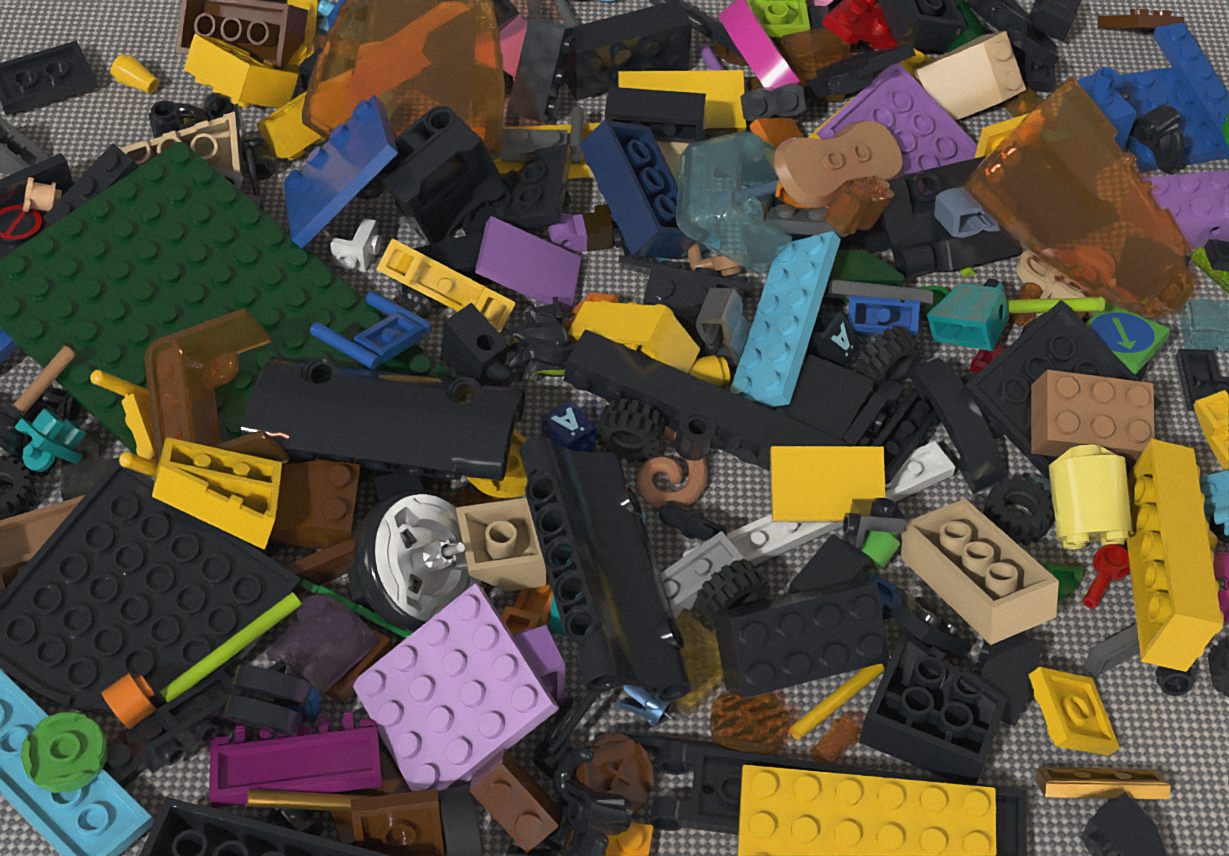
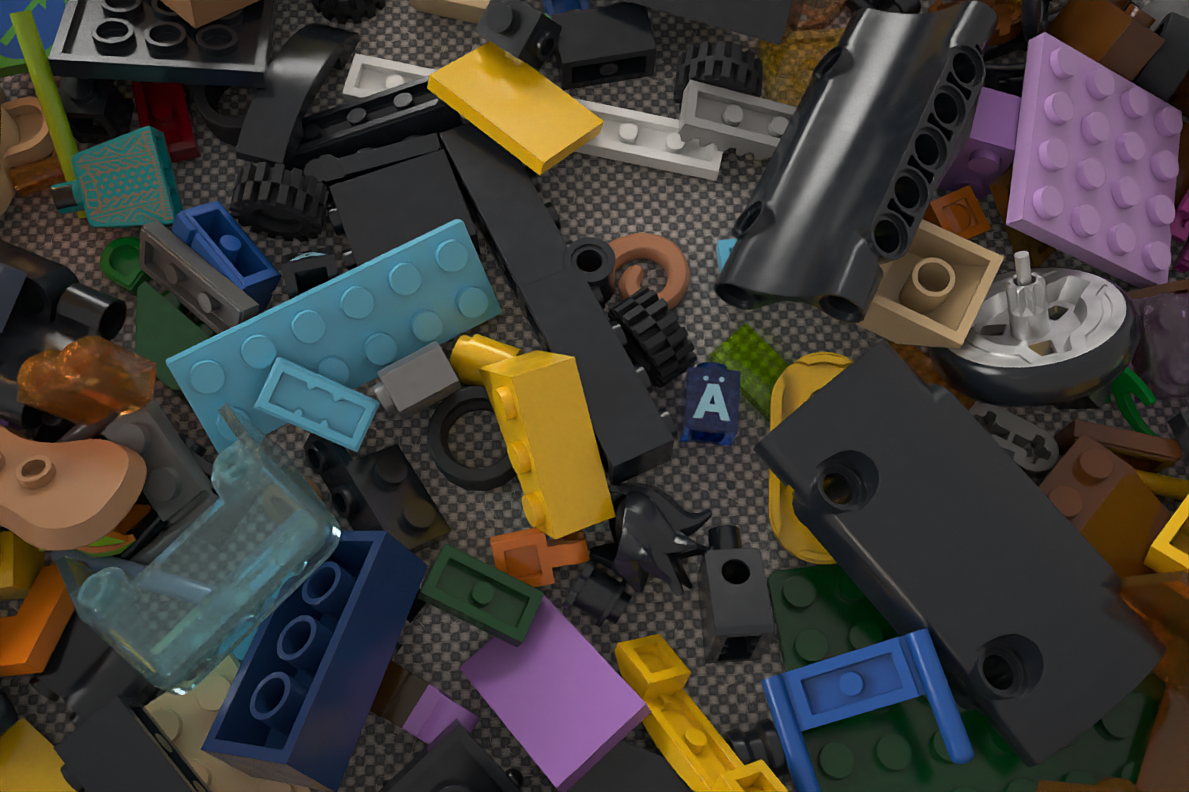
camera: 140 degrees left, 20 degrees up
(598, 273) = (481, 595): none -> dark green plate
(690, 522) = (681, 189): black pin -> none
(758, 277) = (317, 404): none -> medium azure plate

